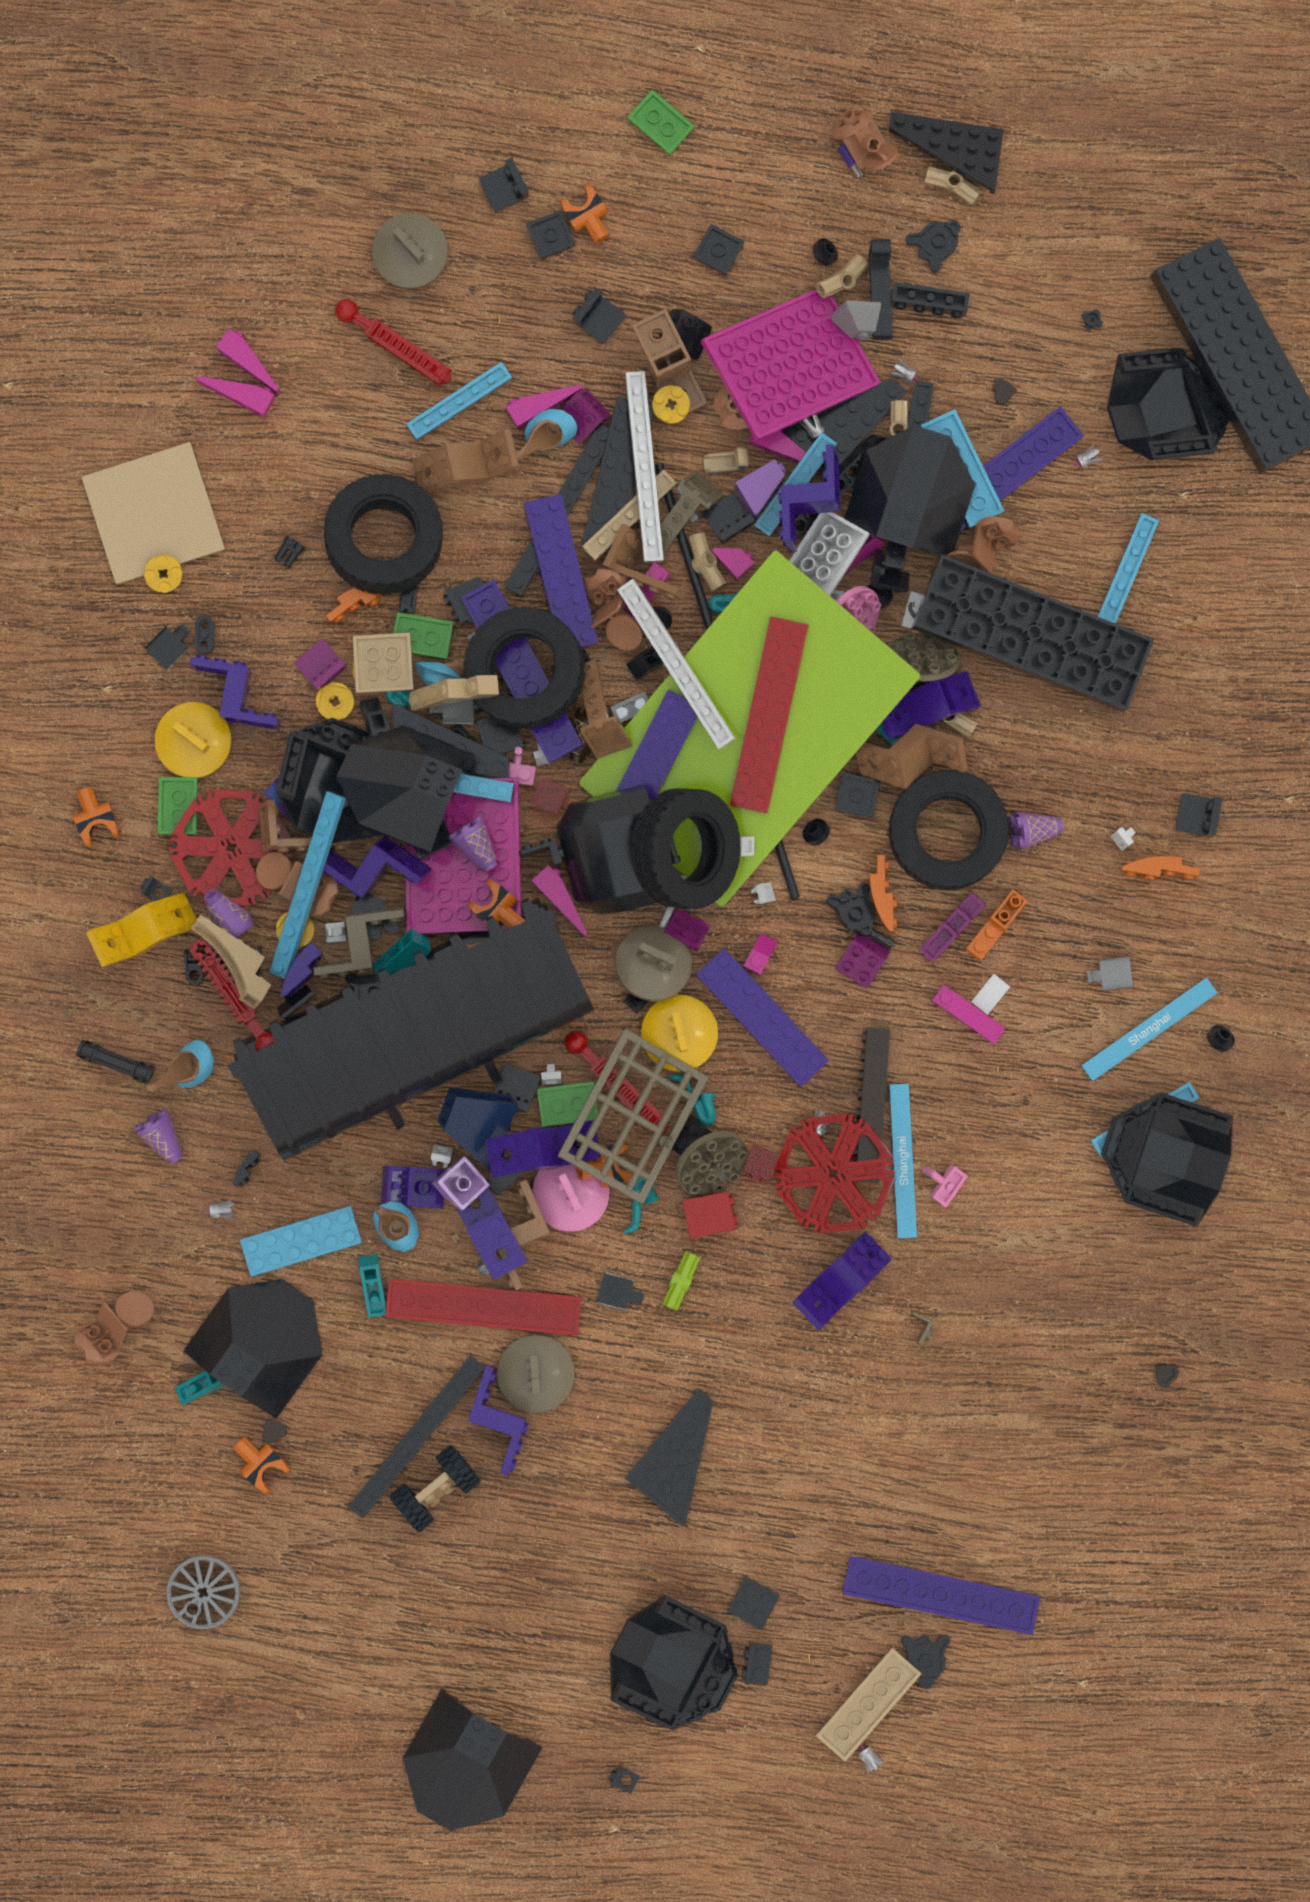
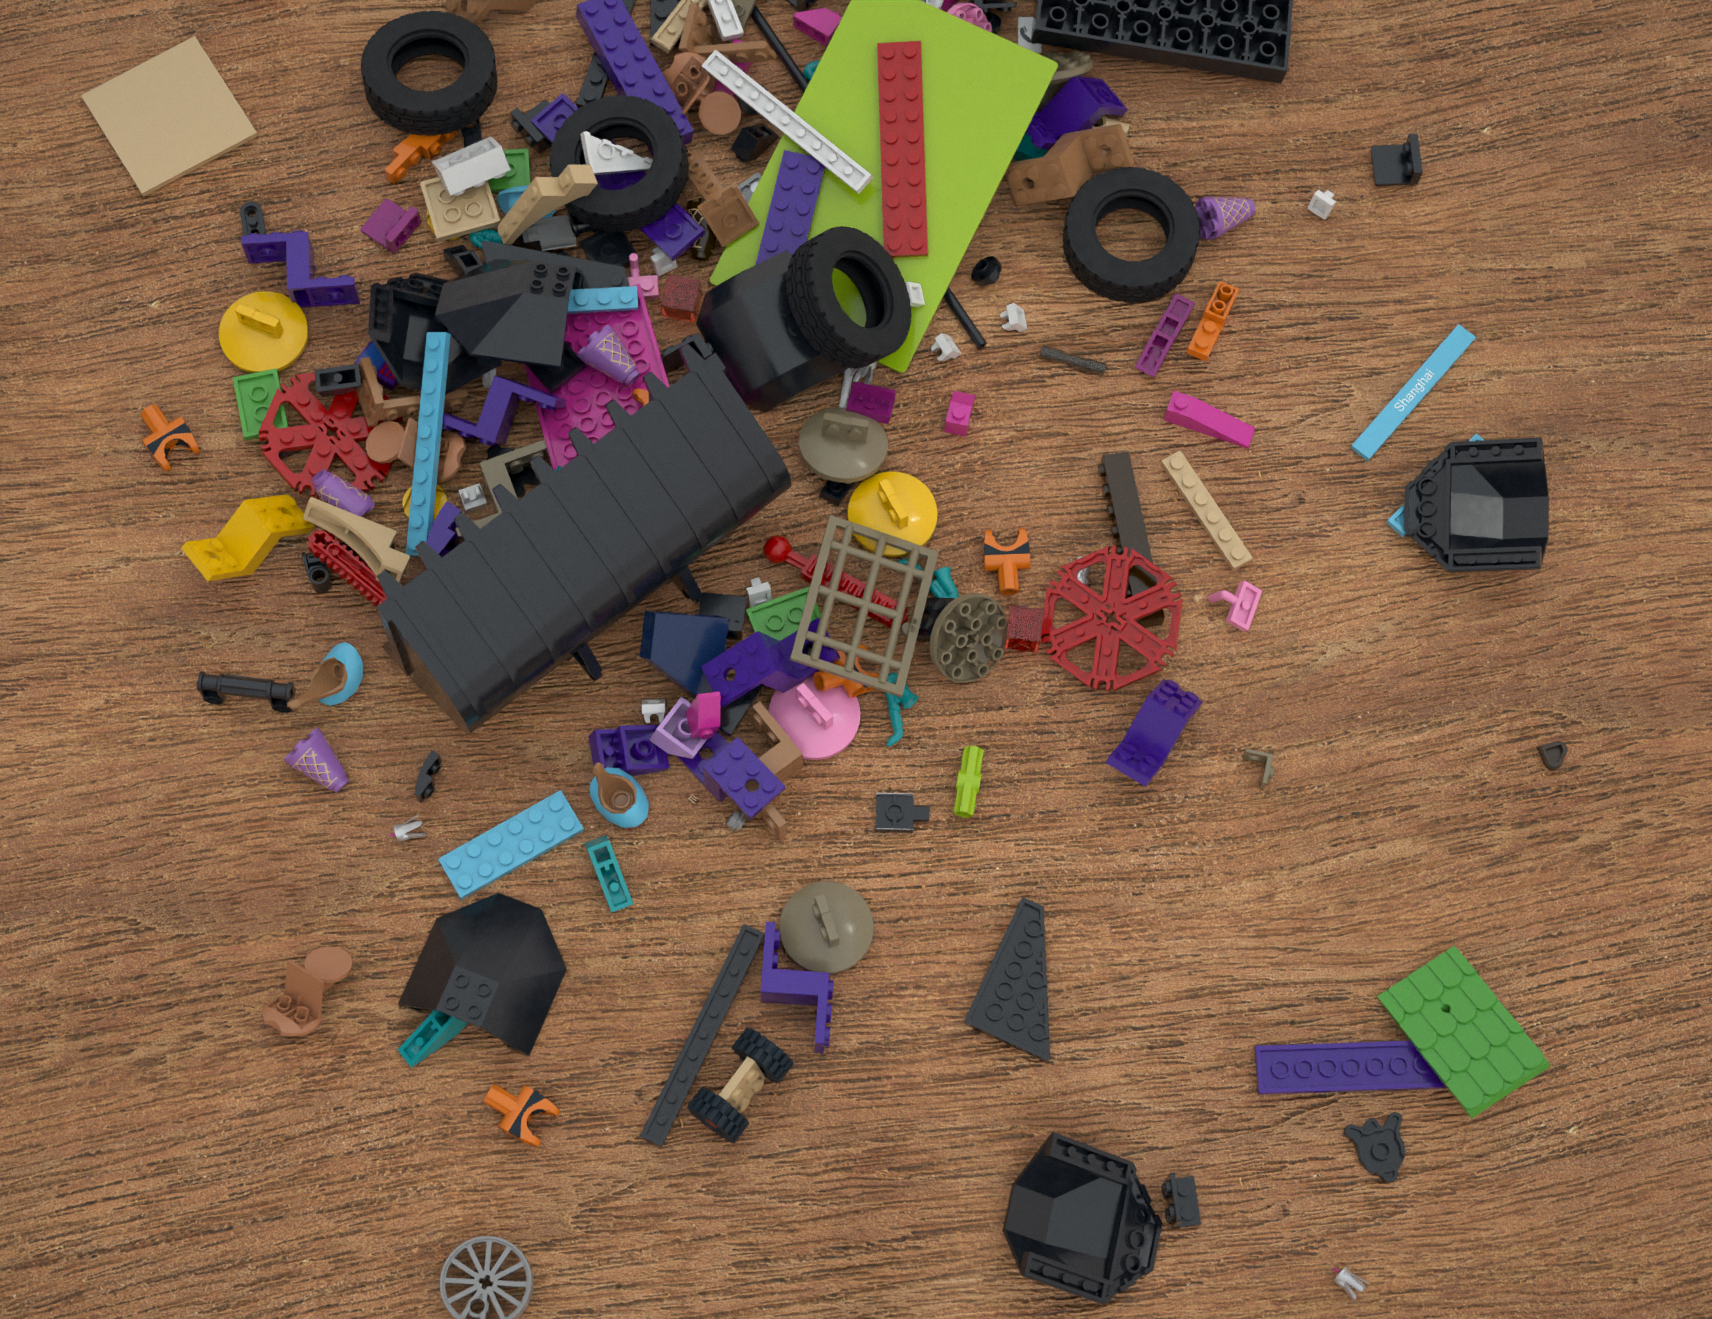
camera: 15 degrees left, 15 degrees down
(150, 884) = (246, 492): black bracket -> none
(163, 562) = (194, 182): yellow plate -> none
(168, 646) = (214, 245): black piece -> none
(245, 809) = (338, 380): none -> black slope
(273, 1431) = (528, 1071): dark brown tile -> none
(289, 544) = (335, 115): black piece -> none
(329, 692) = (407, 250): yellow plate -> none
(398, 634) = (471, 166): none -> white slope
(478, 1182) = (704, 715): none -> dark pink slope
(483, 1307) = (744, 866): red plate -> none
(515, 662) = (611, 158): none -> white wing
(705, 561) = (789, 31): tan piece -> none
(710, 1214) = (981, 700): red brick -> none
(753, 1603) = (1156, 1132): black plate -> none
(762, 1017) = (981, 475): dark purple brick -> none
(763, 1098) = (1006, 560): none -> orange connector
(830, 880) = (1016, 318): none -> white tile
(854, 910) = (1051, 340): black tile -> none
(857, 795) = (1020, 226): black plate -> none
(862, 960) = (1075, 392): magenta bracket -> none
(868, 1704) = (1329, 1216): tan plate -> none
(883, 902) = (1078, 323): orange slope -> none
(903, 1161) = (1192, 614): medium azure tile -> none
(942, 1092) = (1206, 510): none -> tan plate
(990, 994) = (1228, 395): white sticker -> none
(1016, 1588) = (1463, 1031): none -> bright green piece
(1113, 973) = (1355, 343): light grey piece -> none
(1152, 867) = (1366, 223): orange slope -> none
(1220, 1038) = (1495, 381): black plate -> none

